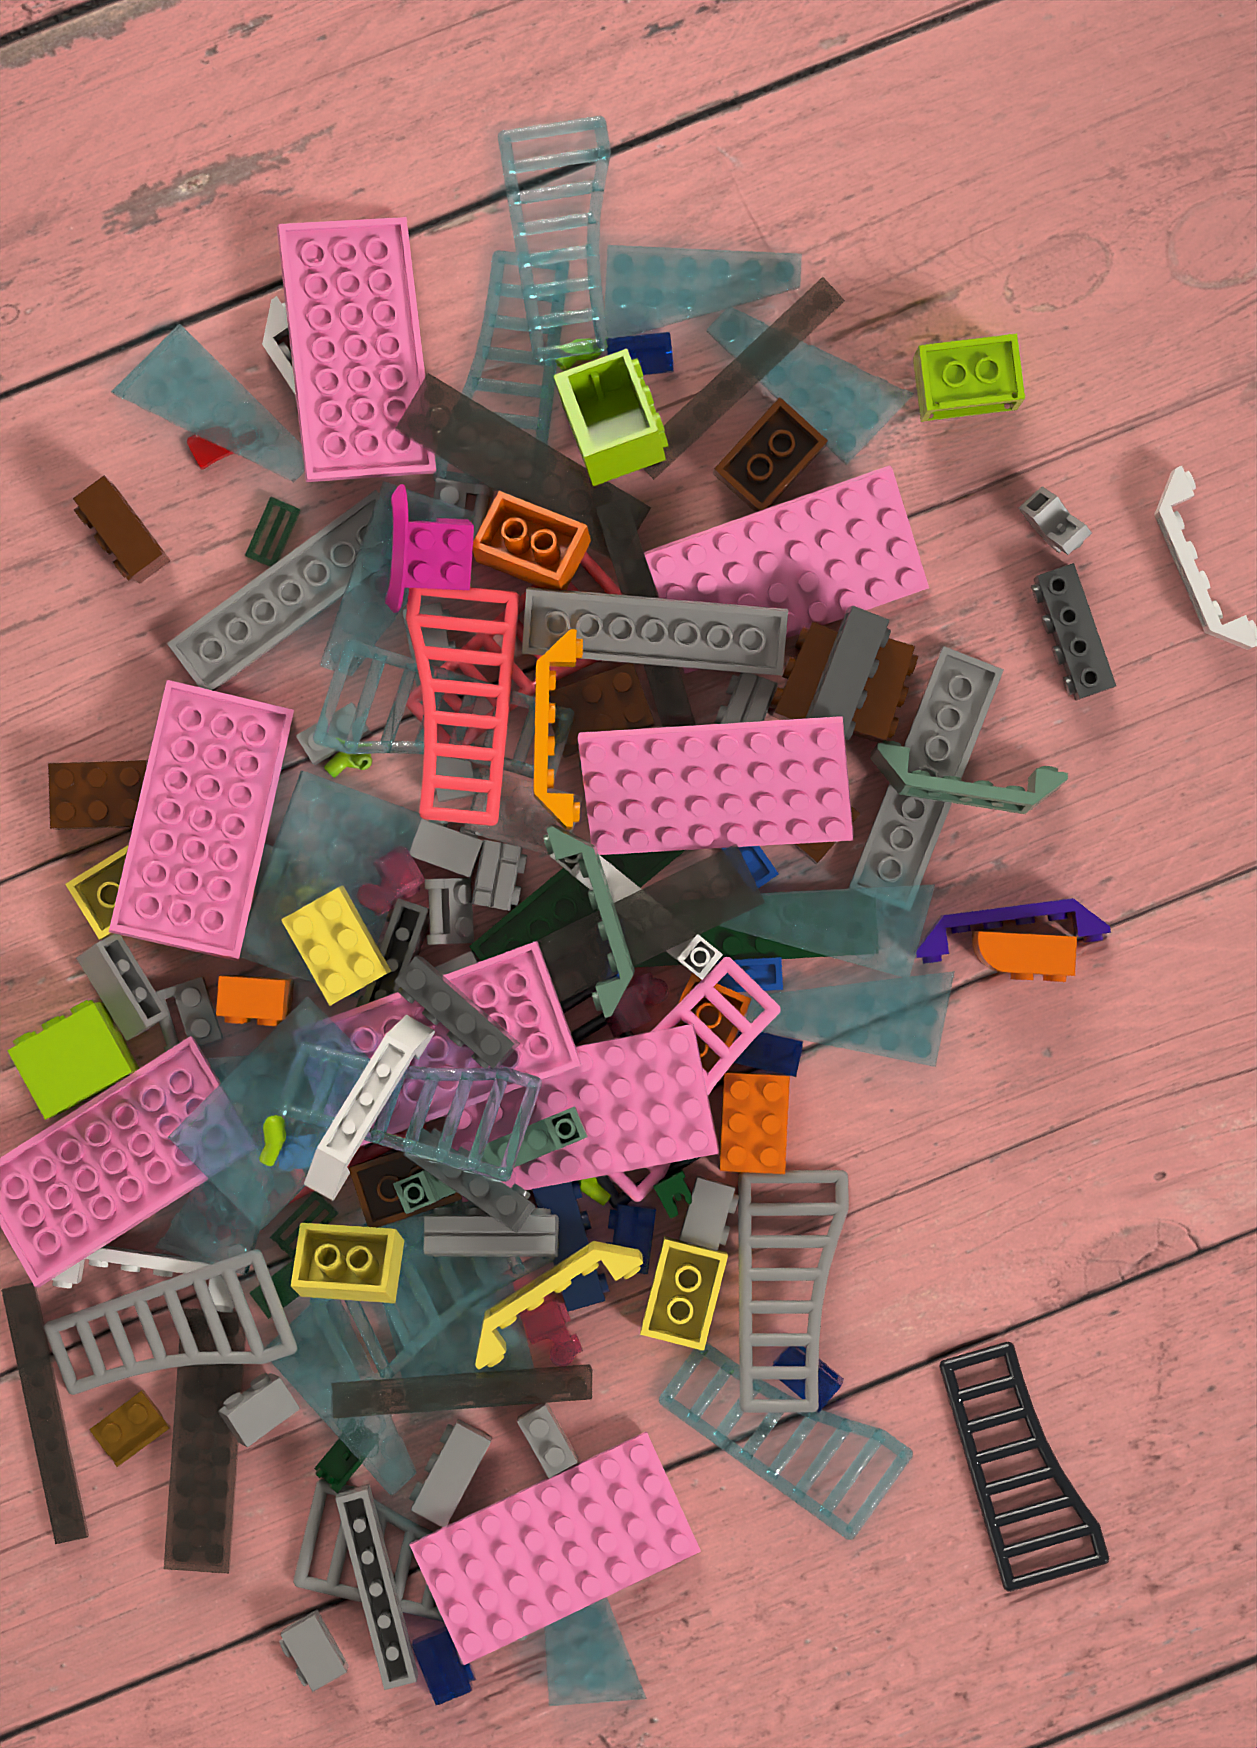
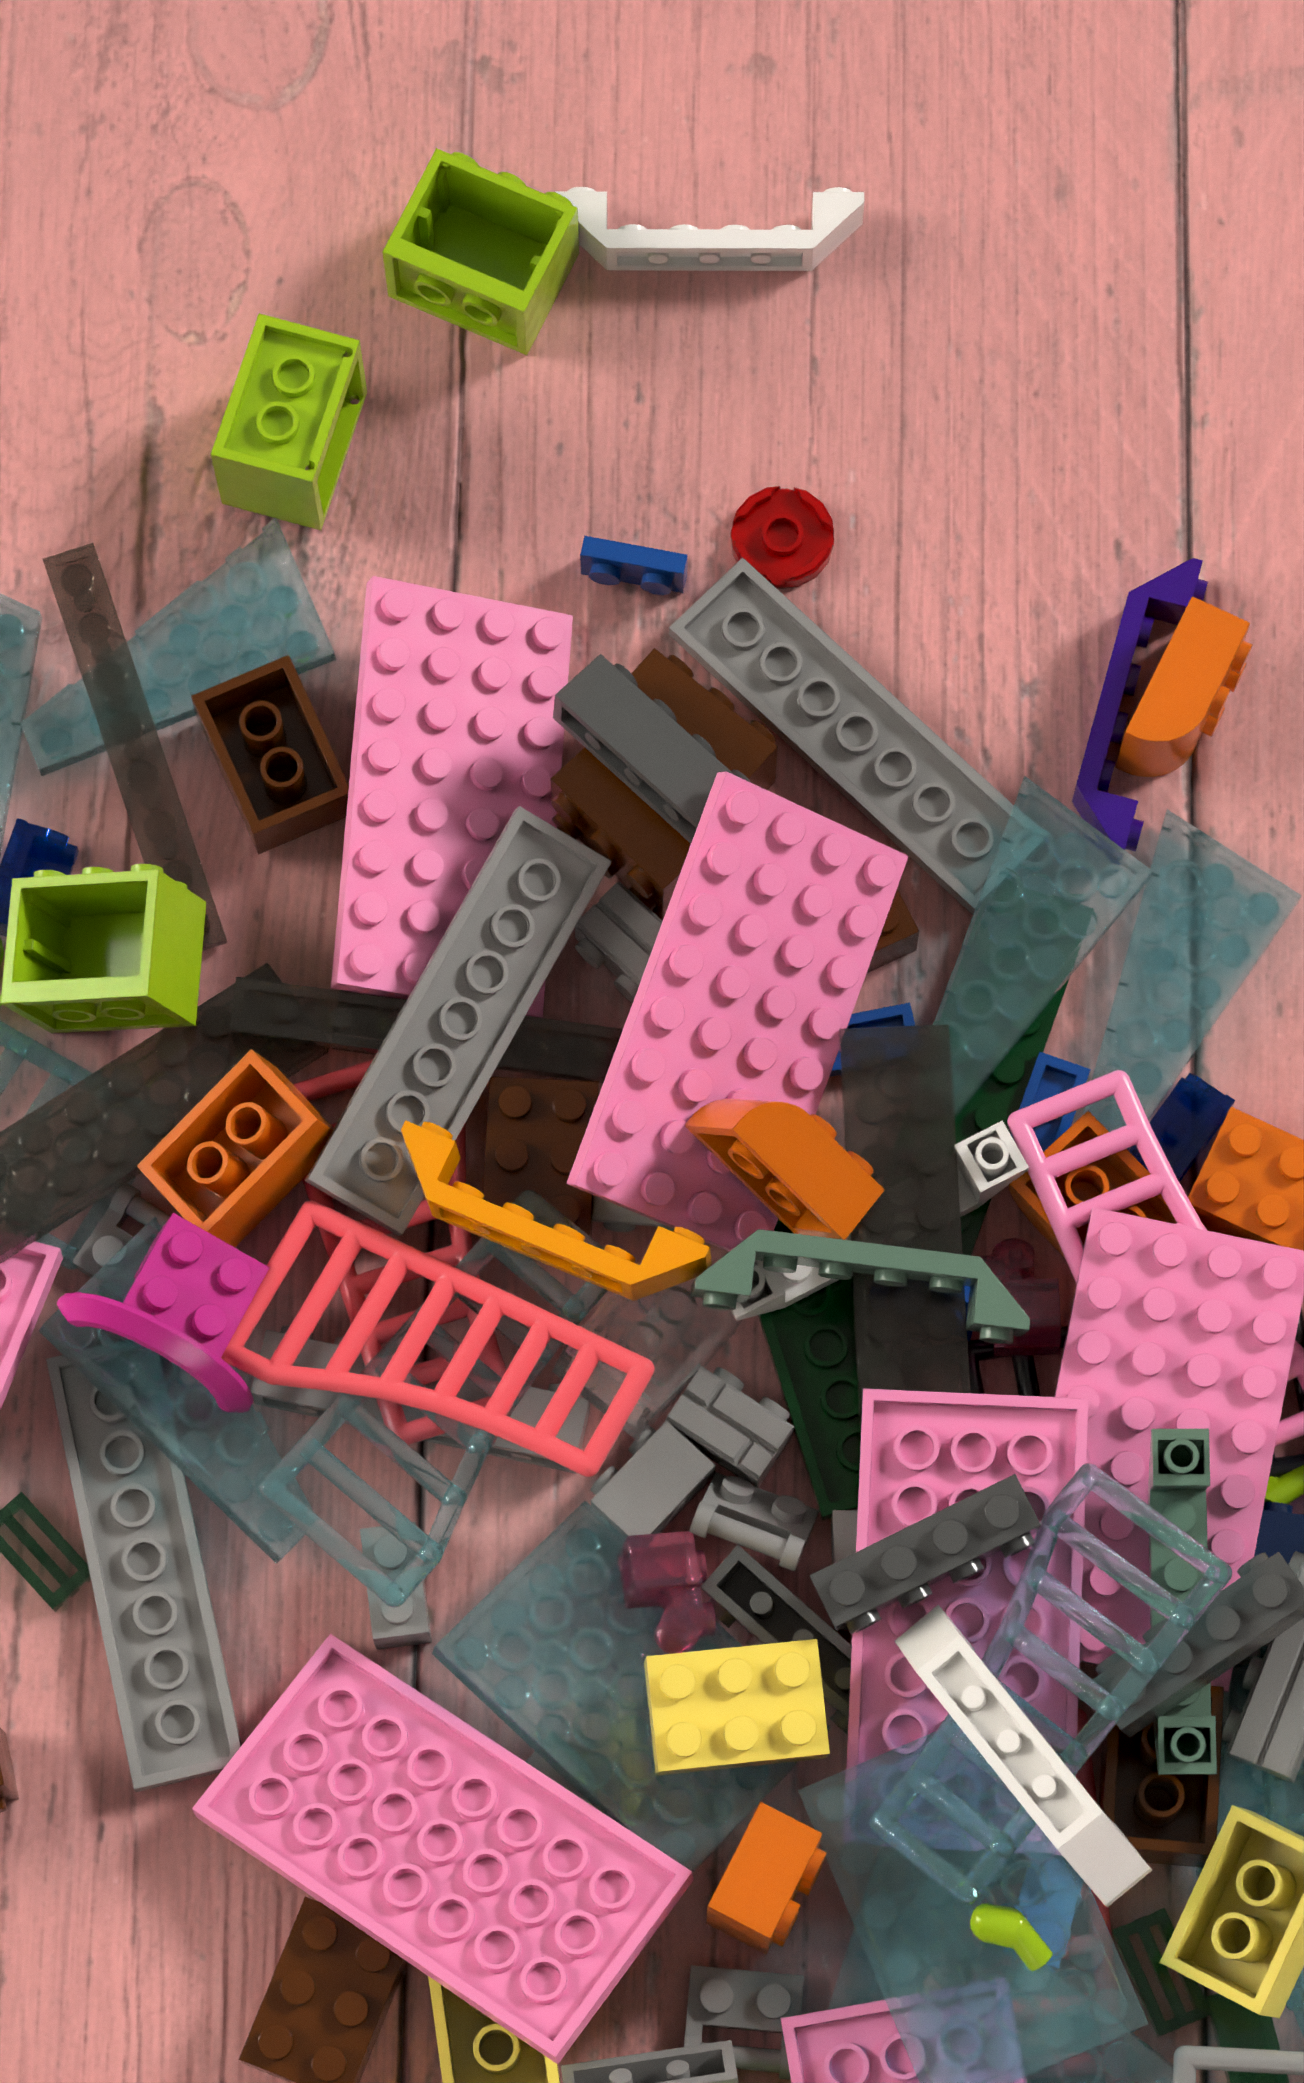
camera: 65 degrees left, 15 degrees down
(343, 760) = (445, 1582): lime arm -> none
(643, 849) = (789, 1163): none -> orange brick
(893, 764) = (821, 760): sand green slope -> none
(974, 624) = (618, 562): none -> blue plate
(1030, 686) = (783, 535): none -> red tile
(1054, 522) = (557, 403): light grey brick -> none
(1074, 632) = (730, 440): dark grey brick -> none
(1126, 439) = (482, 250): none -> lime container

